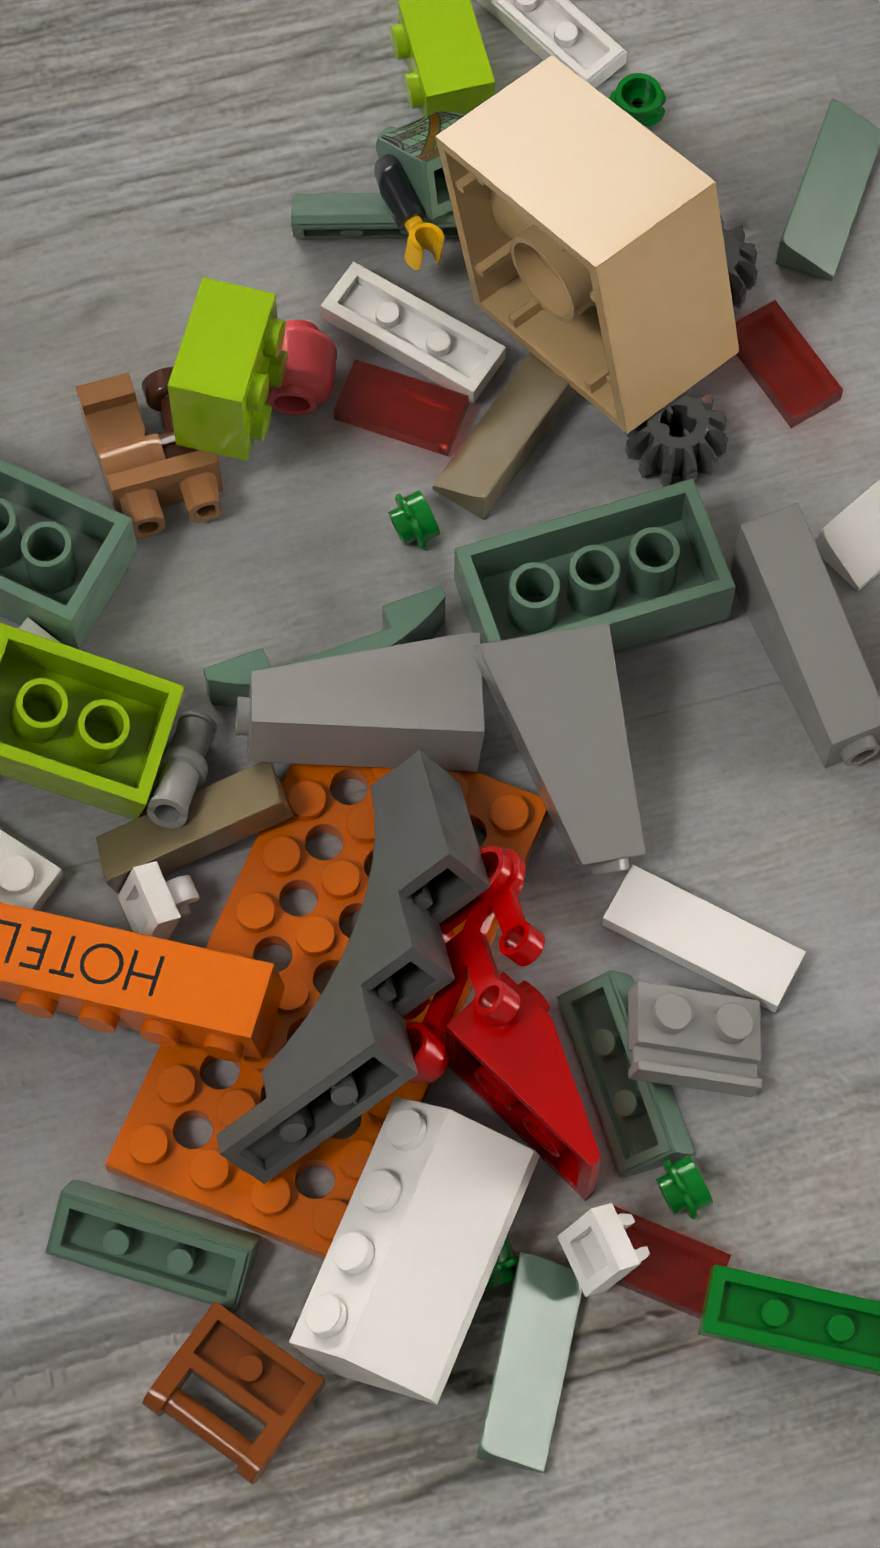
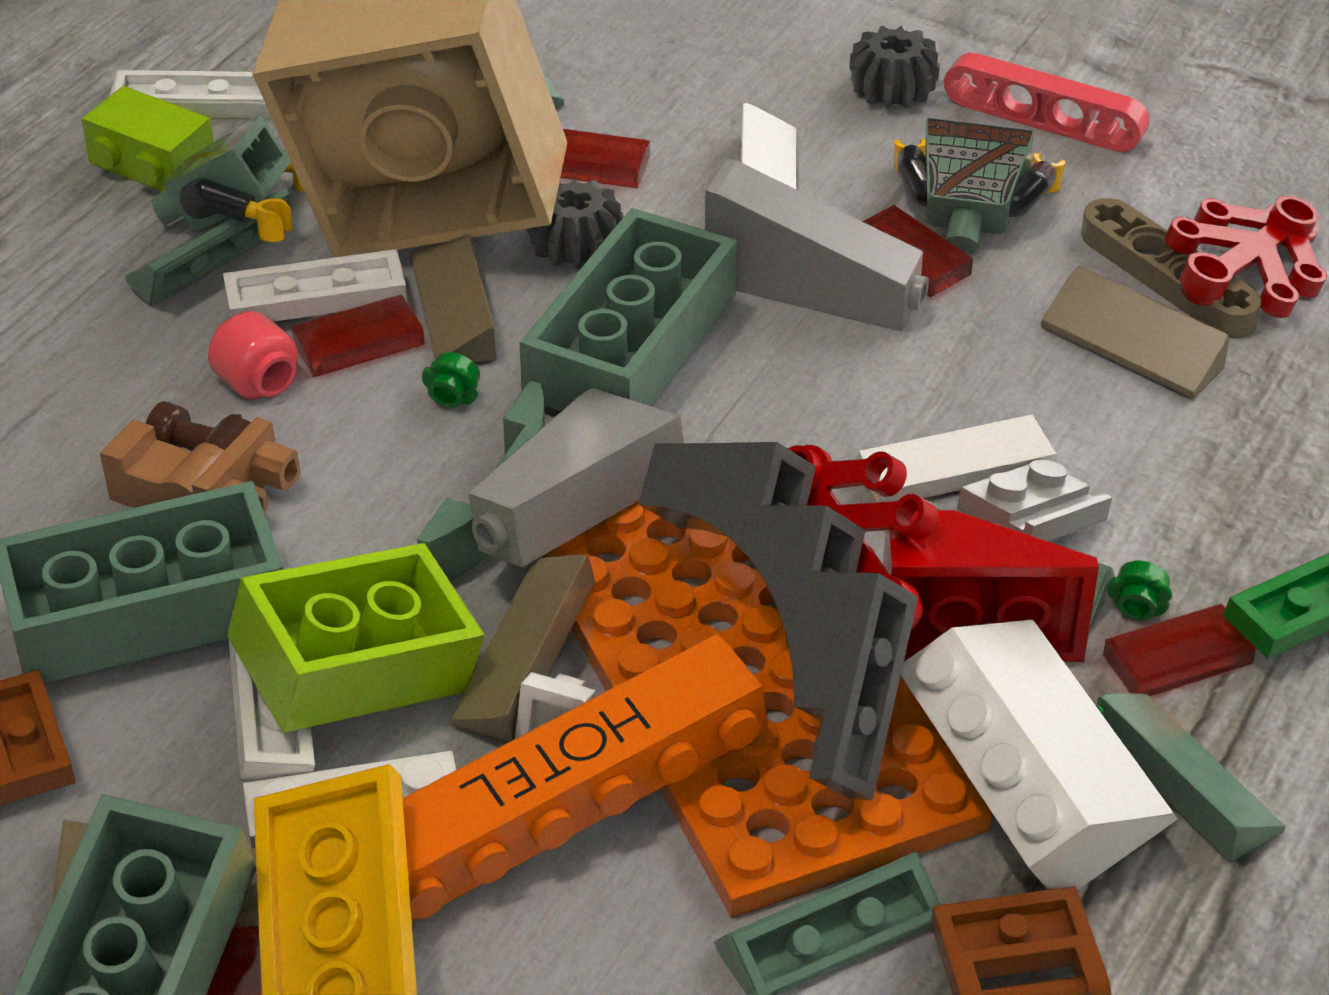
camera: 45 degrees left, 25 degrees down
(182, 769) = (497, 624): light grey pin -> none
(227, 369) = (229, 337): lime brick -> none
(571, 732) = (732, 379): light grey slope -> none
(601, 1249) = (1149, 647): white tile -> none

